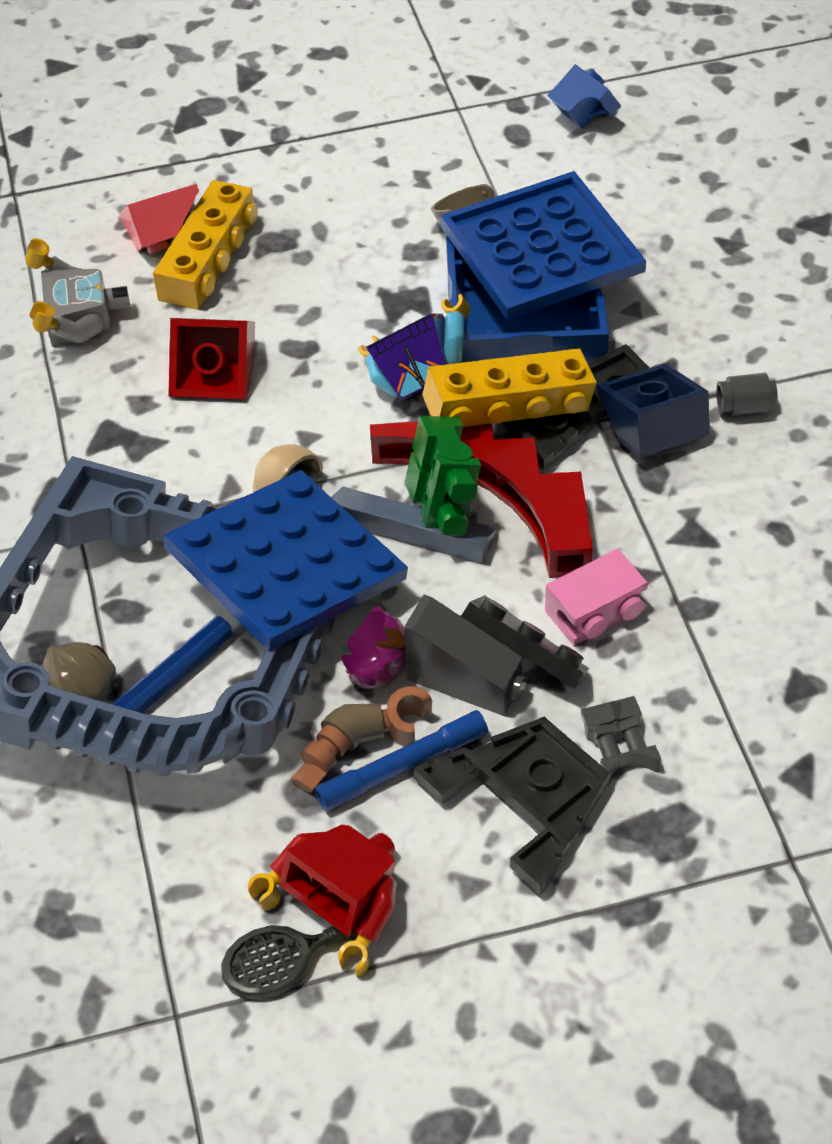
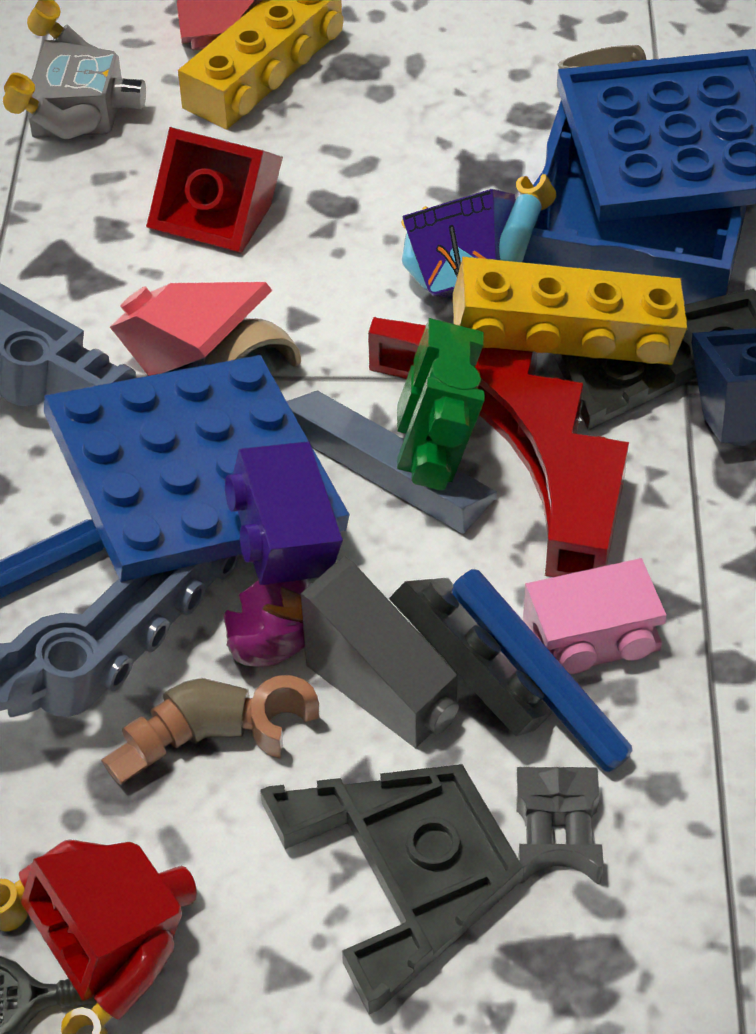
camera: 15 degrees right, 0 degrees up
(234, 459) = (183, 320): none -> coral slope
(355, 782) = (181, 787): blue piece -> none
(371, 575) = (283, 513): none -> dark purple brick
(565, 632) = (533, 658): none -> blue axle

